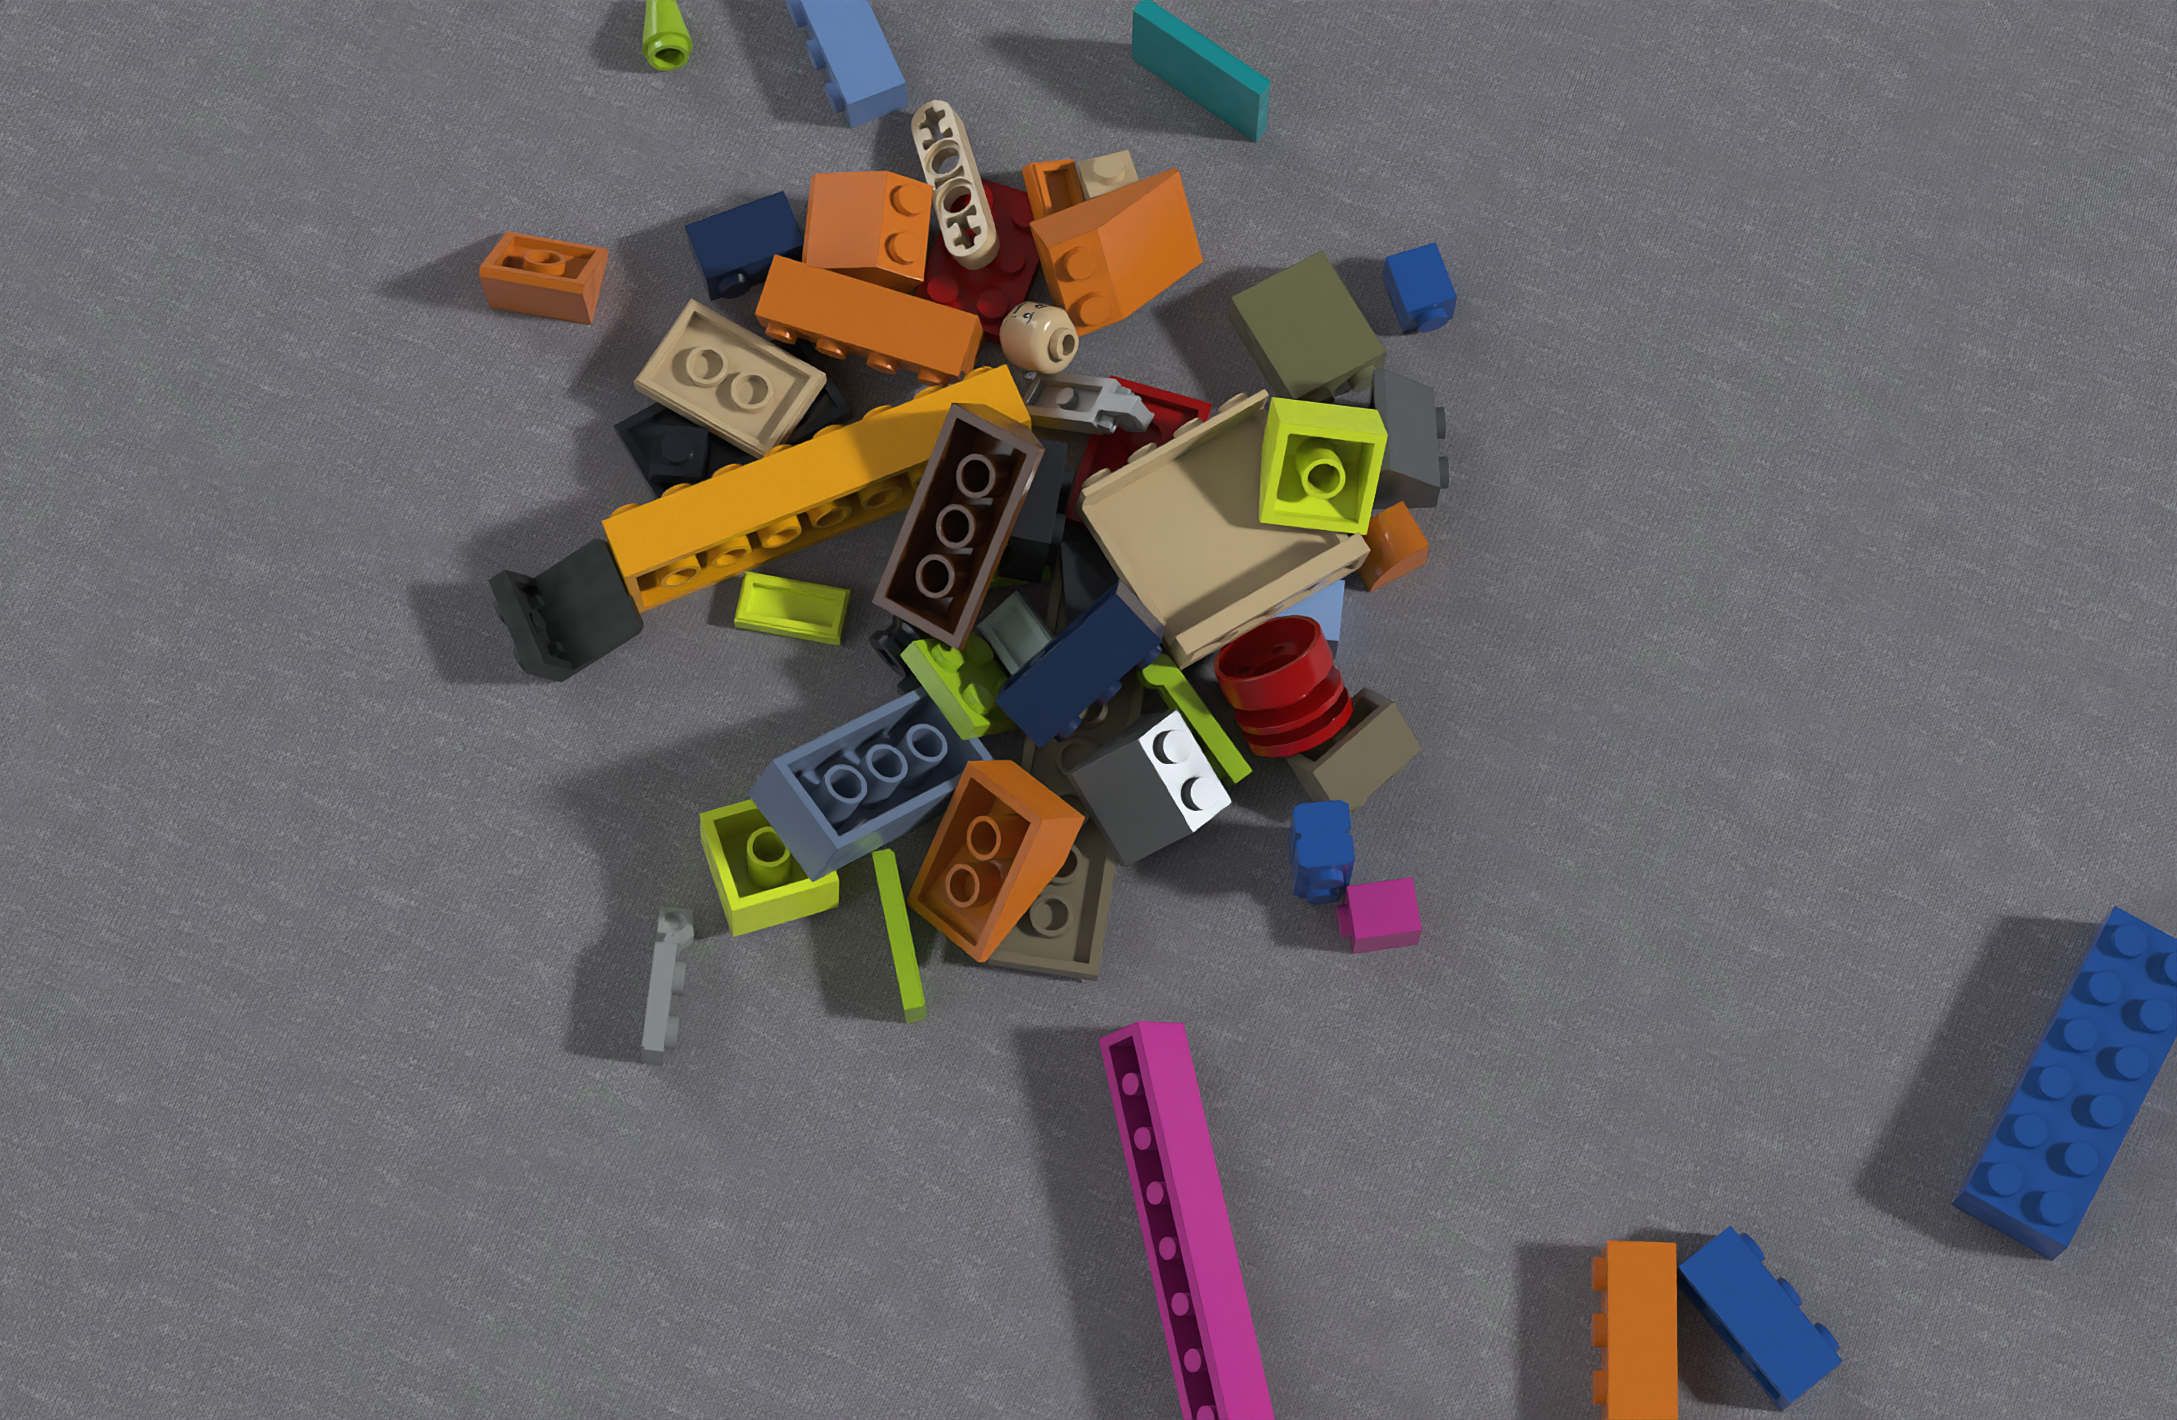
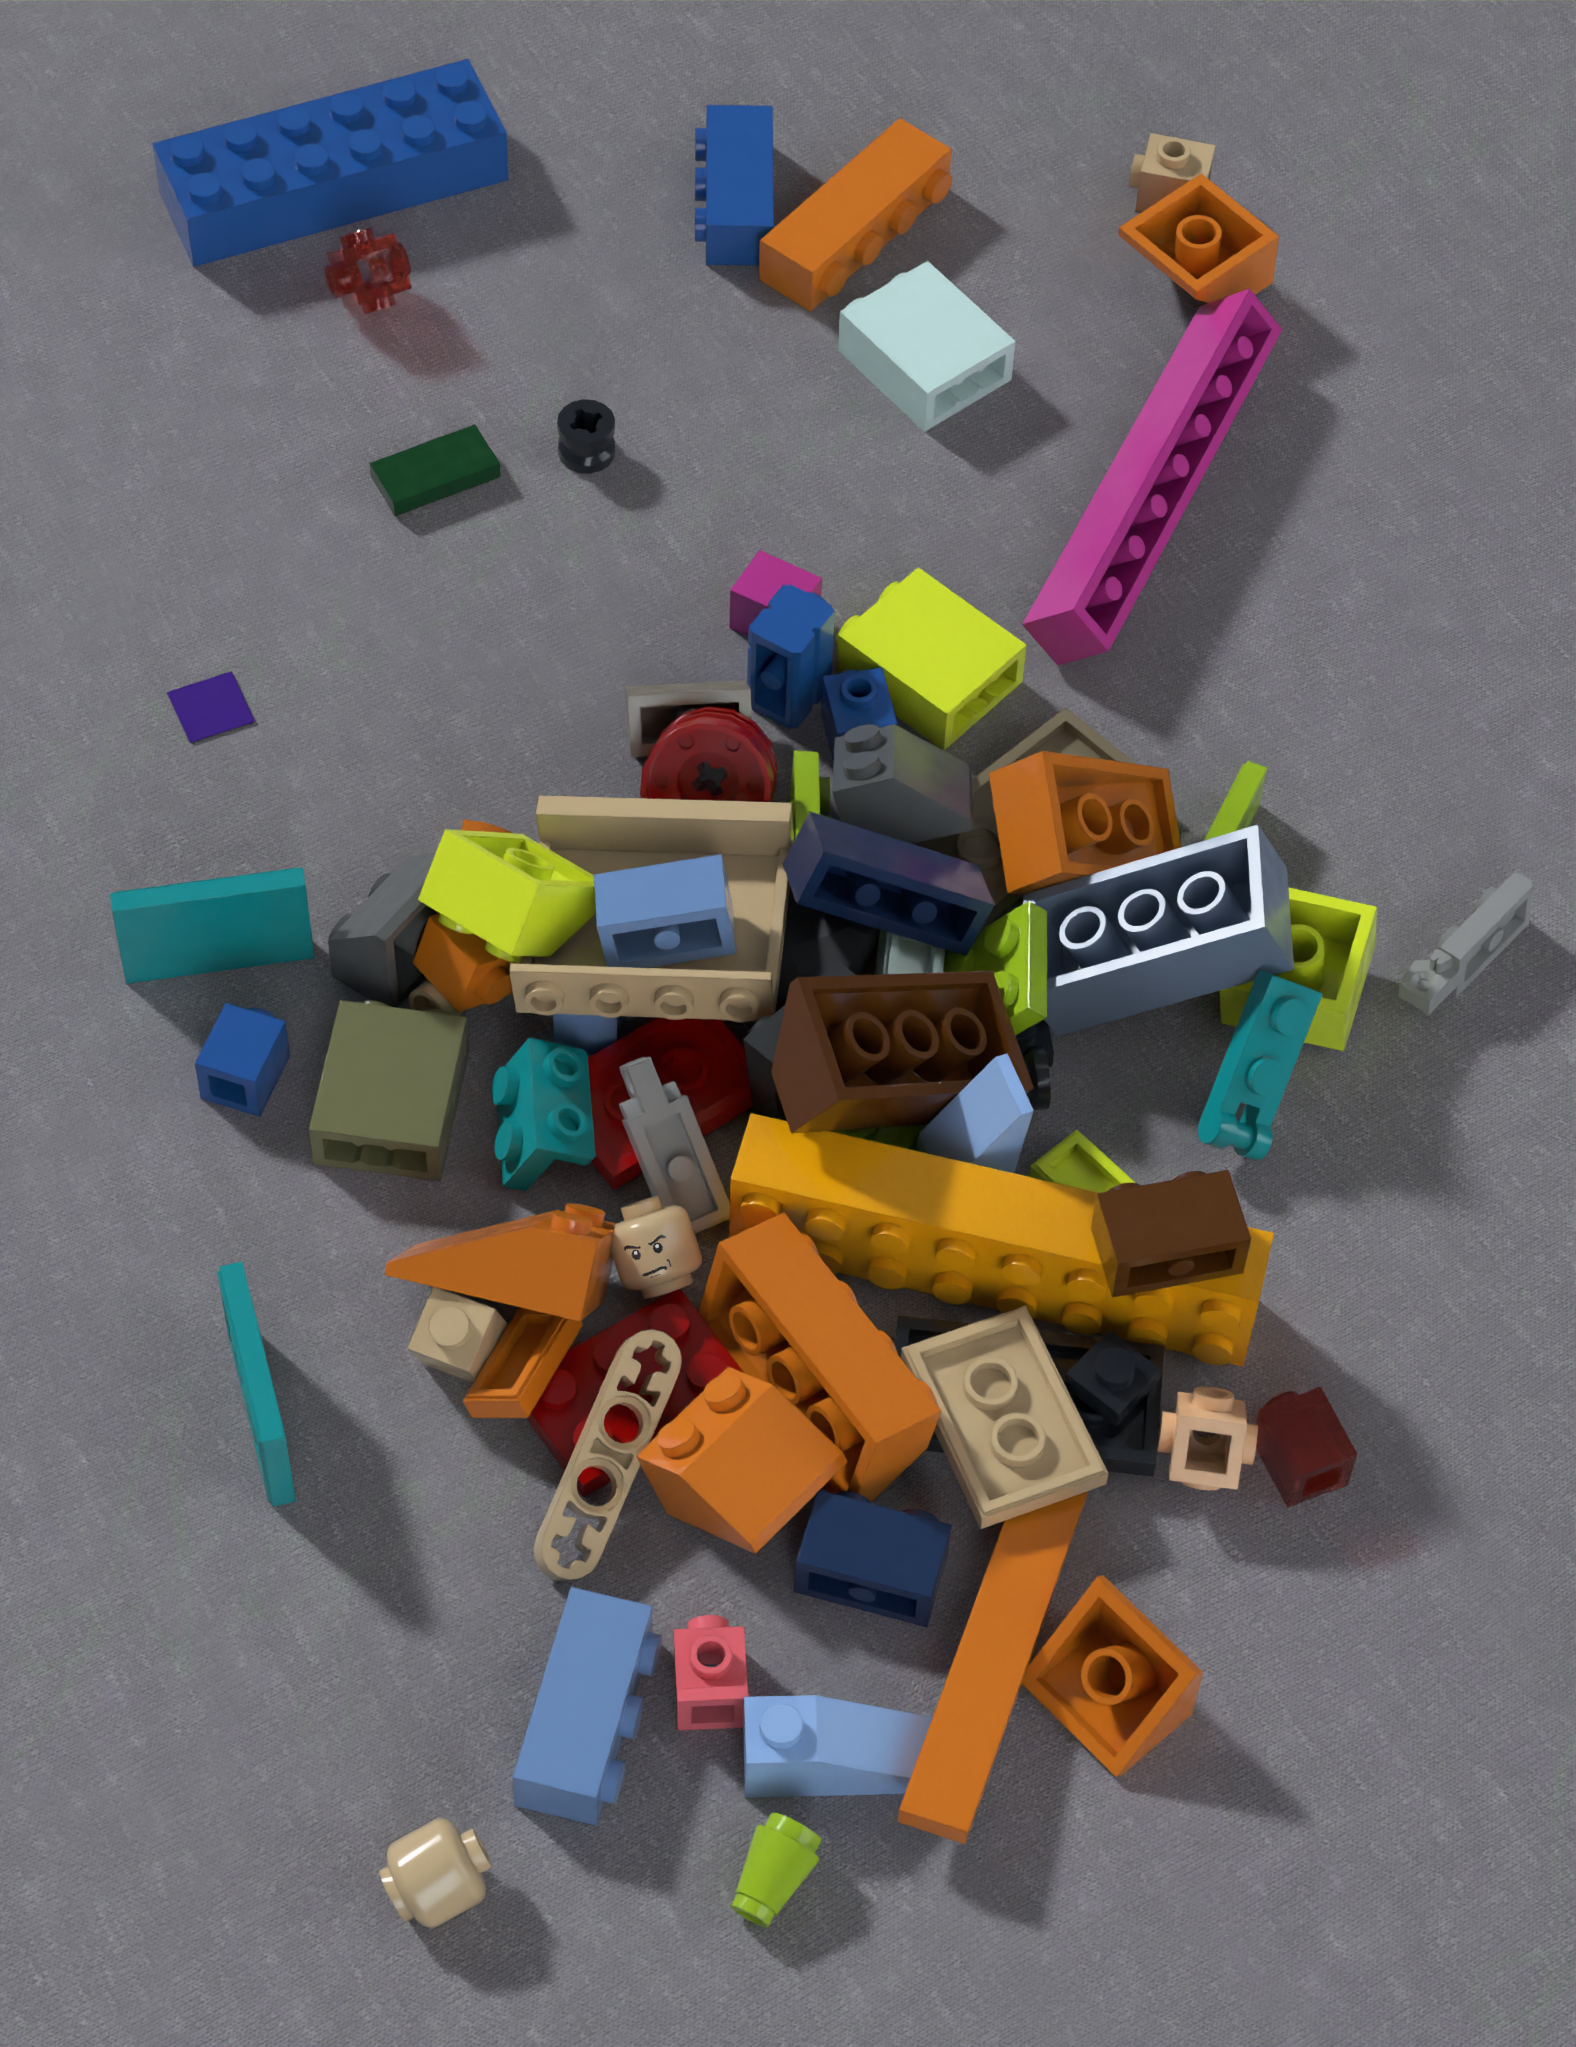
camera: 145 degrees left, 15 degrees down
(529, 508) = (1304, 1446): none -> clear red brick
(567, 612) = (1338, 1314): pearl dark grey bracket -> none
(589, 458) = (1213, 1460): none -> light nougat brick
(621, 219) = (989, 1670): none -> orange tile
(677, 122) = (827, 1747): none -> light blue slope
(684, 504) = (1170, 1232): none -> reddish brown brick
(735, 741) = (1258, 1065): none -> teal plate
(771, 104) = (710, 1694): none -> coral brick
(868, 533) = (983, 1121): none -> light blue slope
(1183, 379) = (542, 1111): none -> teal bracket
(1201, 508) = (665, 913): none -> medium blue brick
(1233, 950) = (936, 654): none -> neon yellow brick
(1241, 858) = (855, 700): none -> blue brick
(1475, 1259) = (925, 345): none -> light aqua brick
(1517, 344) = (213, 925): none -> teal tile
(1646, 979) = (586, 436): none -> black wheel
(1704, 548) = (210, 707): none -> dark purple sticker
(1737, 860) = (435, 470): none -> dark green tile
(1947, 985) = (387, 267): none -> clear red brick

